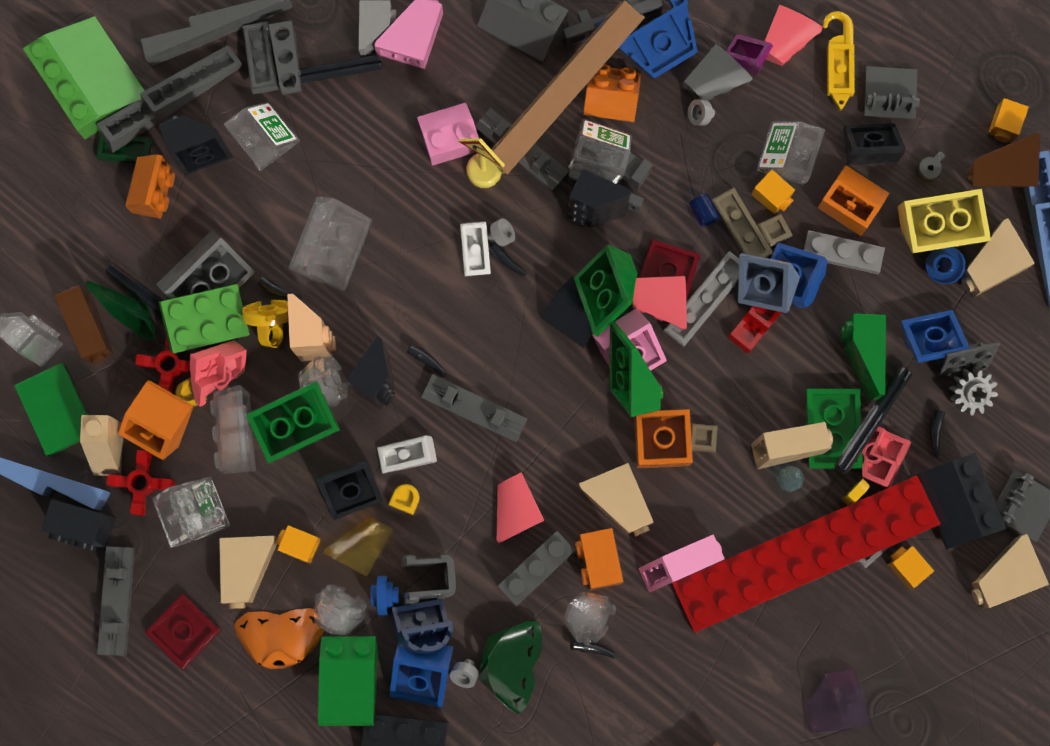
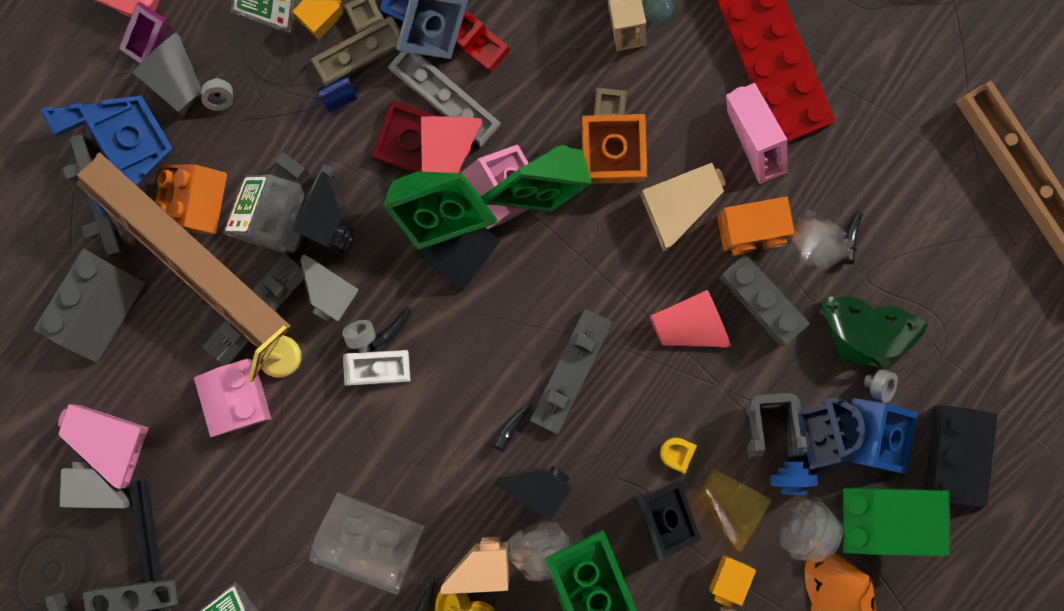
camera: 90 degrees left, 5 degrees up
(407, 454) = (624, 451): white slope -> none
(539, 204) = (326, 290): none -> light grey slope

